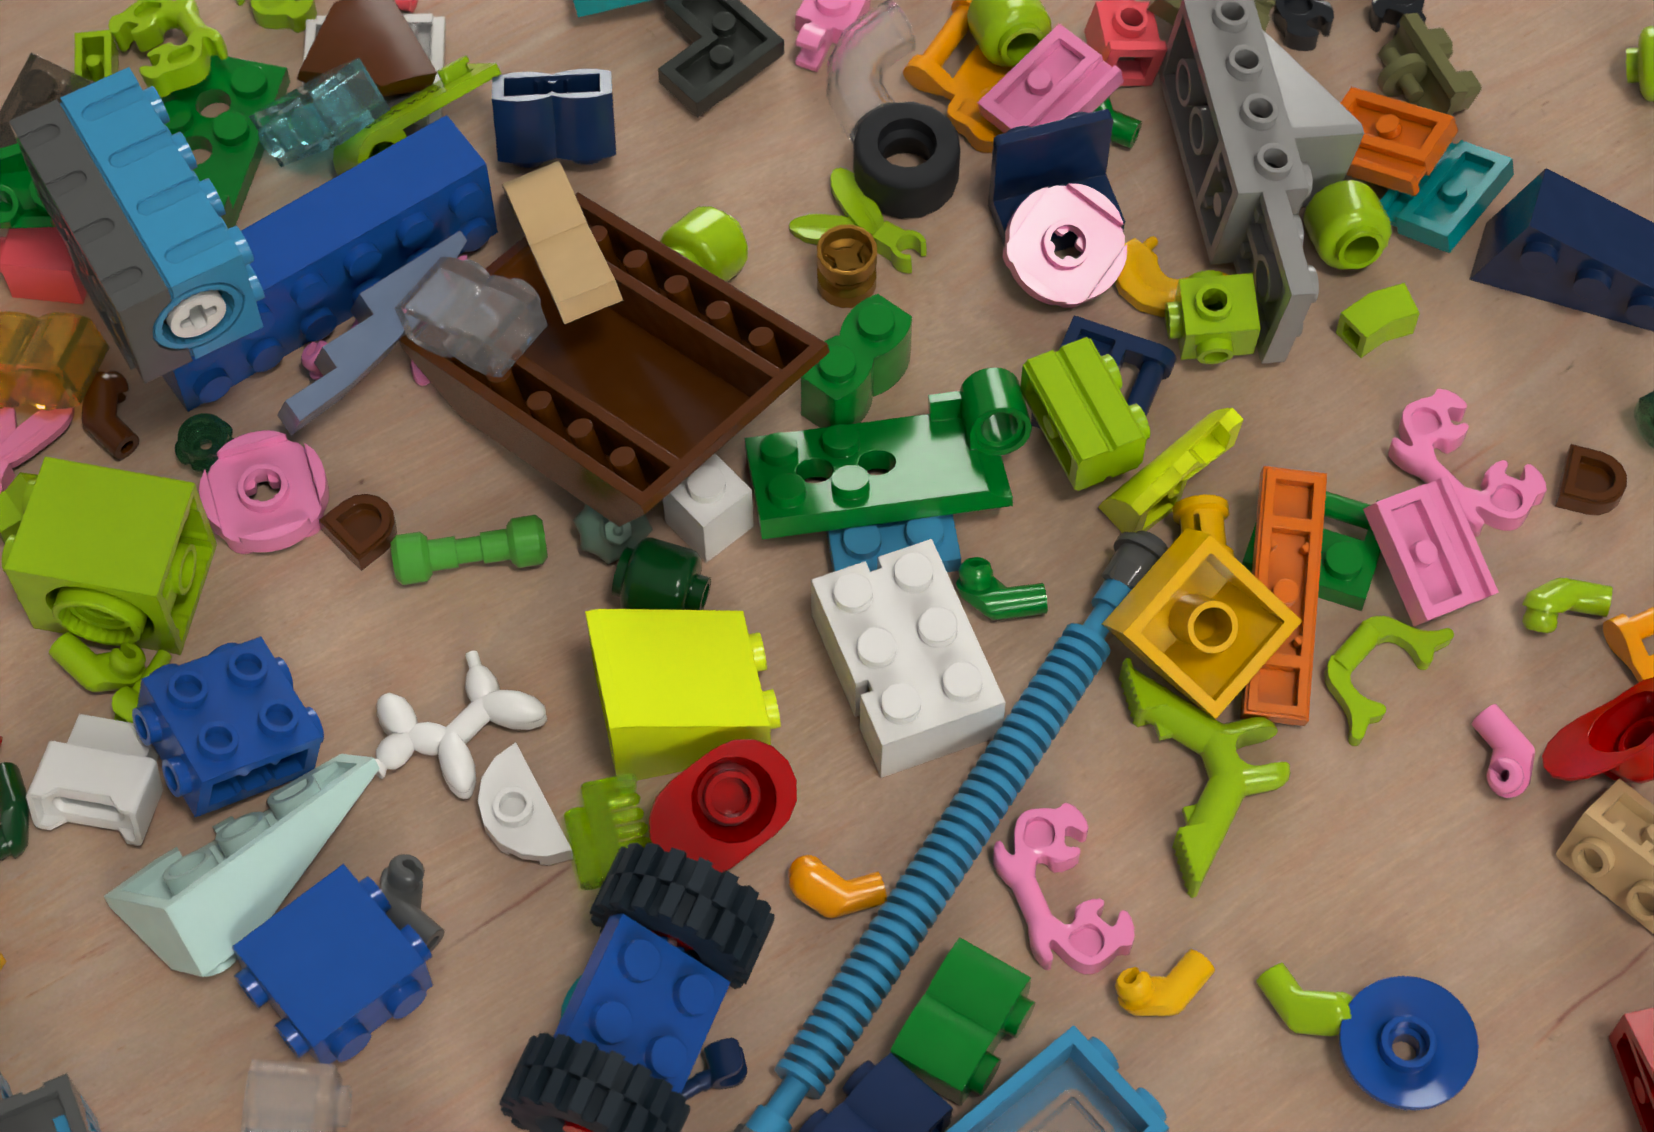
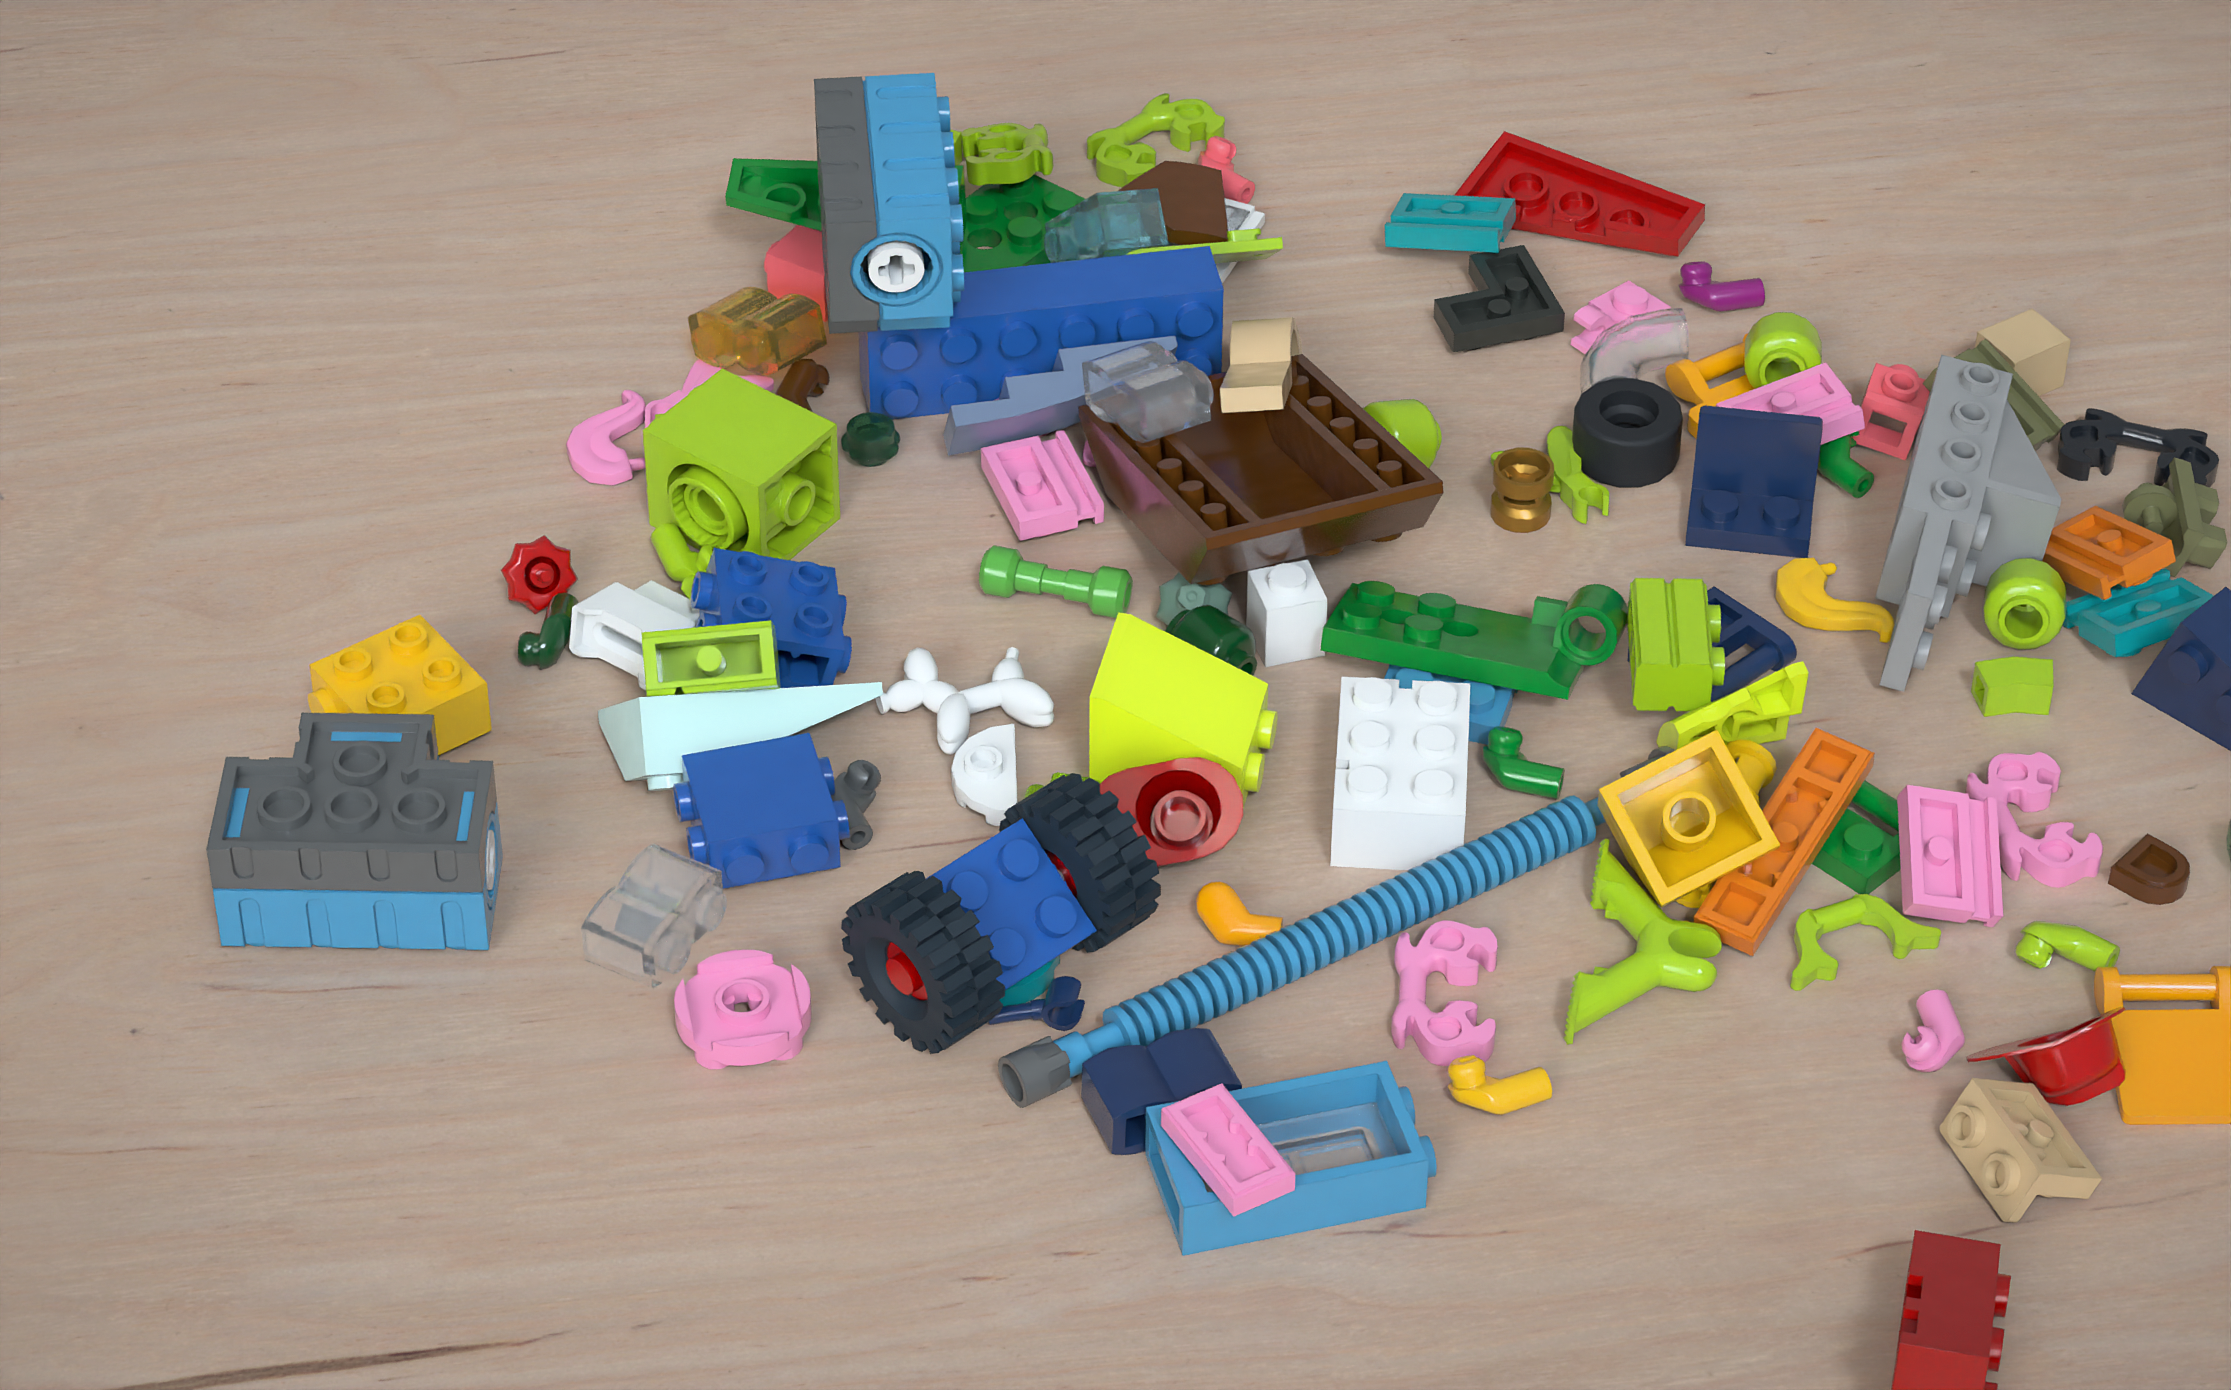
camera: 25 degrees right, 20 degrees down
(210, 828) = (711, 659): none -> lime brick
(273, 523) = (877, 504): bright pink plate -> none
(361, 528) = (967, 539): reddish brown tile -> none
(398, 435) = (1041, 485): none -> bright pink plate
(554, 117) = (1328, 299): dark blue brick -> none
(861, 364) = (1489, 556): green brick -> none
(963, 1021) = (1294, 1033): green brick -> none
(1099, 240) = (1743, 499): plate -> none
(1214, 316) = (1846, 624): lime brick -> none
(1303, 1009) = (1623, 1149): lime arm -> none
(1429, 1021) = (1699, 1196): blue dish -> none

